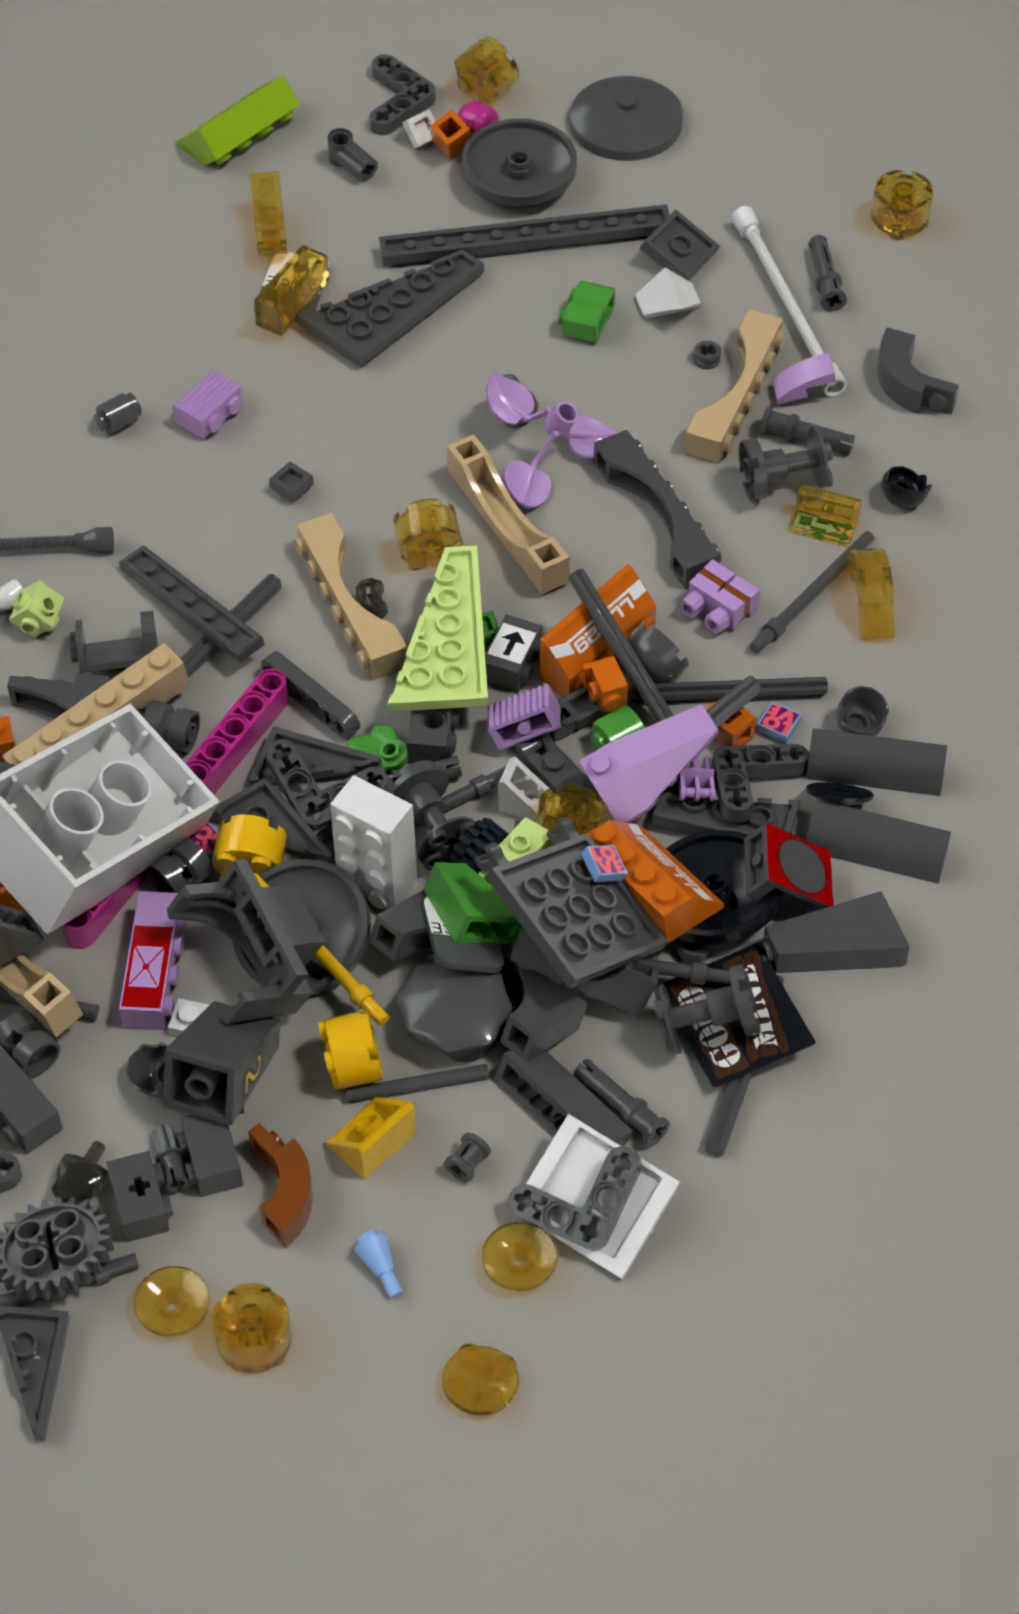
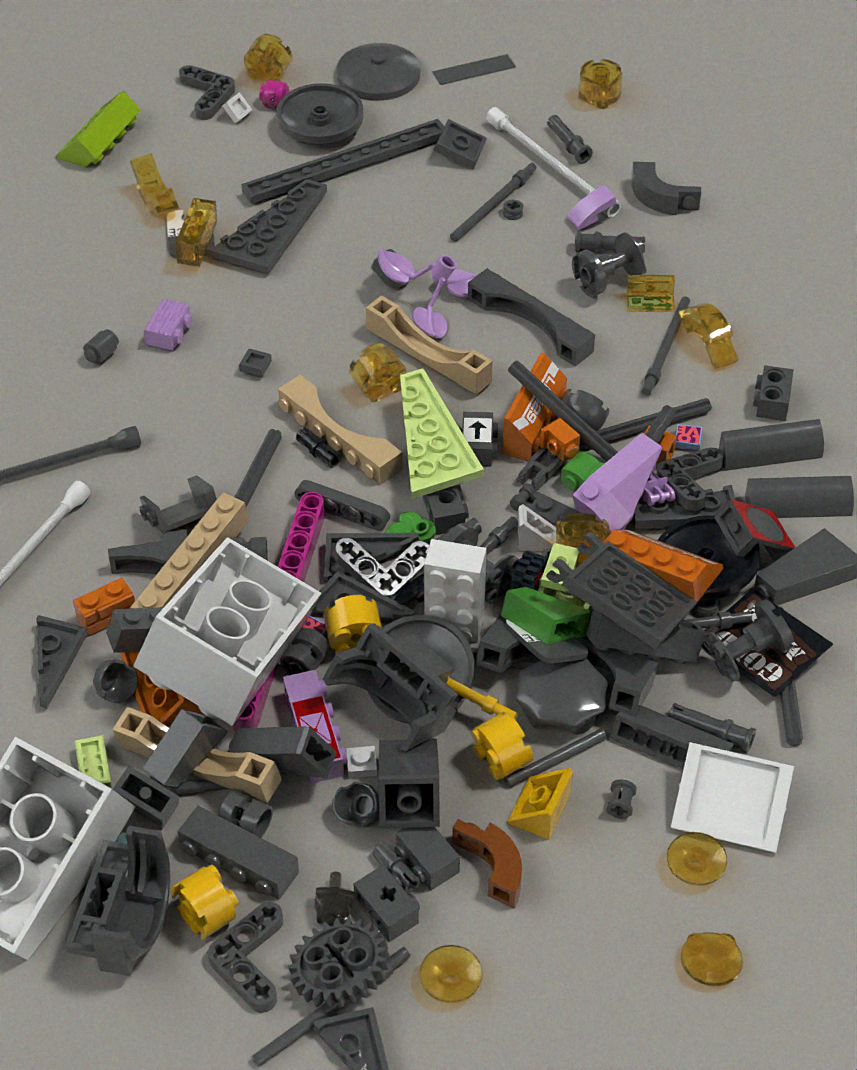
camera: 20 degrees left, 5 degrees down
(36, 609) = (104, 497): yellowish green brick -> none
(96, 982) = (292, 748): none -> dark grey slope
(192, 603) = (222, 464): dark grey tile -> none
(252, 1328) = (525, 974): clear yellow brick -> none
(317, 612) = (318, 447): none -> black pin
(347, 154) = (186, 135): dark grey piece -> none
(373, 599) = (357, 425): clear smoke bush -> none
(376, 1255) = (588, 890): light blue cone -> none
(450, 134) = (262, 106): orange brick -> none
(523, 717) = (511, 477): lavender brick -> none
(579, 1217) = (728, 815): dark grey beam -> none
(587, 311) = (415, 199): bright green brick -> none
(604, 863) = (631, 557): tile -> none
(667, 295) = (465, 177): white slope -> none
(714, 427) = (545, 250): tan arch -> none
(720, 597) = (607, 364): lavender hips -> none
(733, 314) = (518, 179): none -> dark grey bar
(753, 142) = (474, 69): none -> dark grey sticker
(839, 793) = (757, 472): black dish -> none
(862, 711) = (745, 412): dark grey hair -> none
(905, 487) = (696, 262): black hair -> none
(916, 692) = (774, 393): none -> dark grey brick

